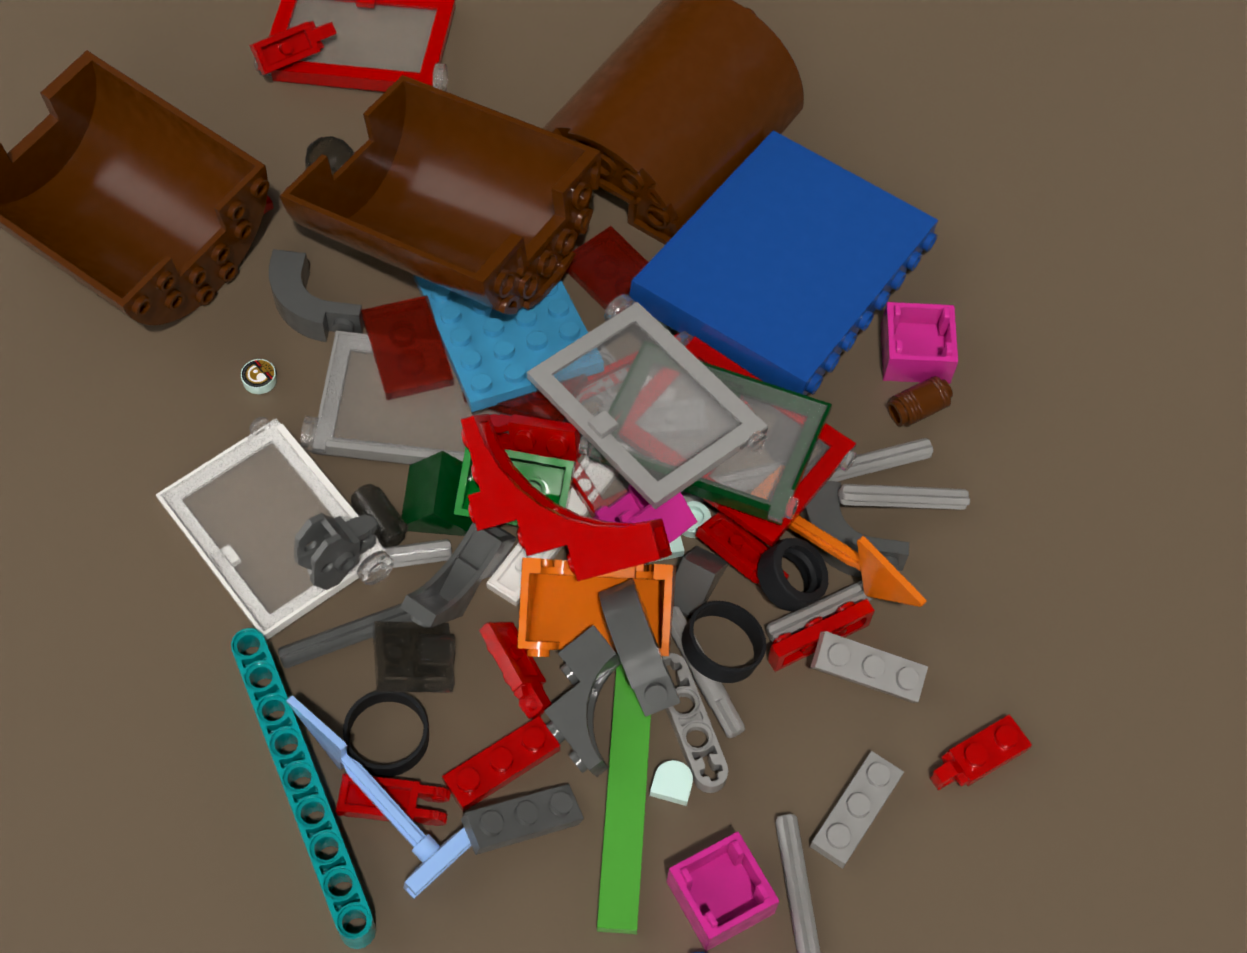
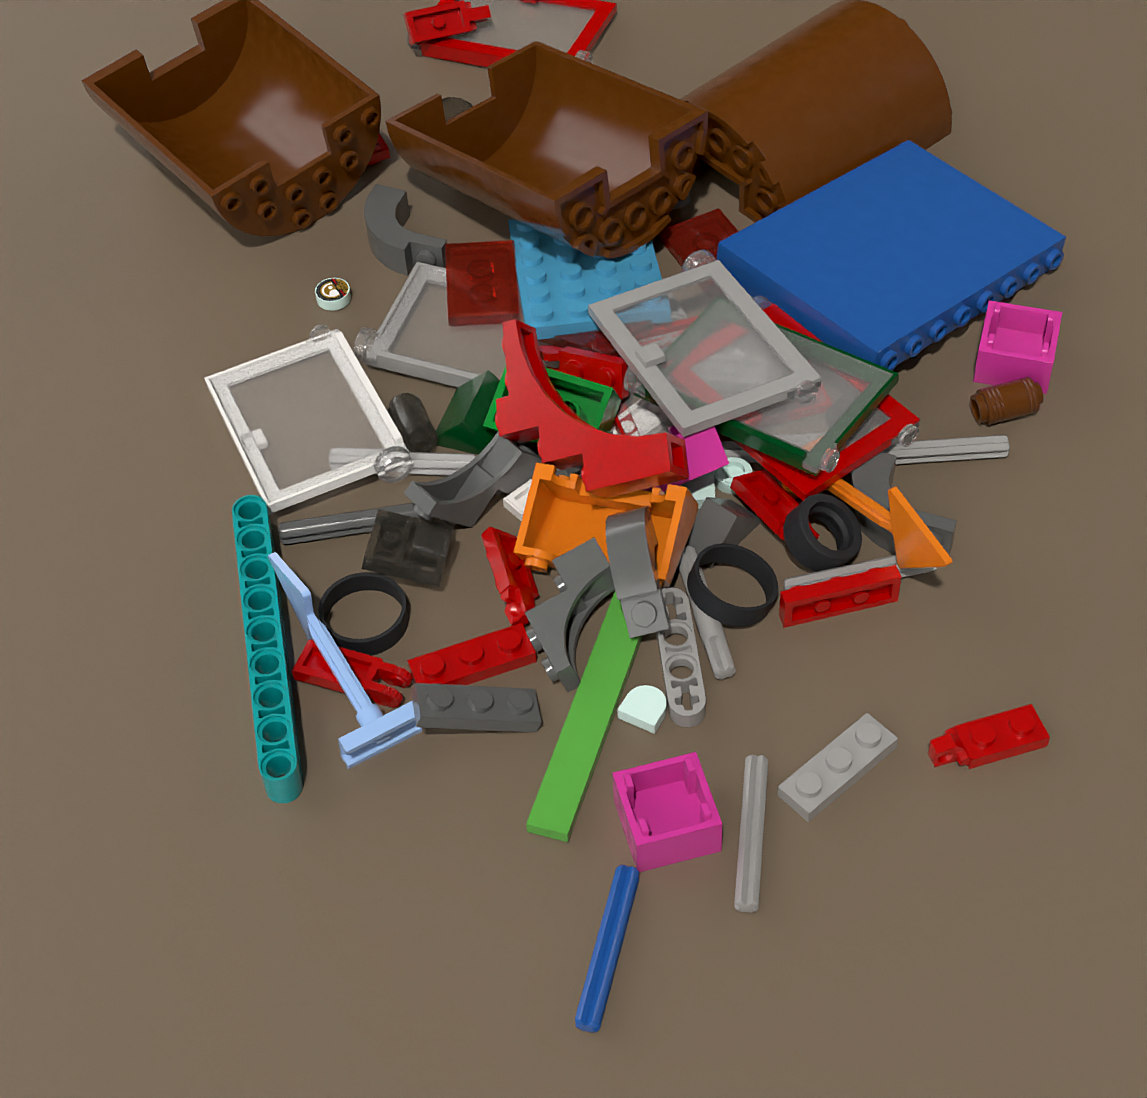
camera: 20 degrees right, 10 degrees down
(334, 546) = (353, 430): dark grey hinge -> none
(869, 667) = (884, 631): light grey plate -> none
(903, 496) = (963, 481): light grey axle -> none

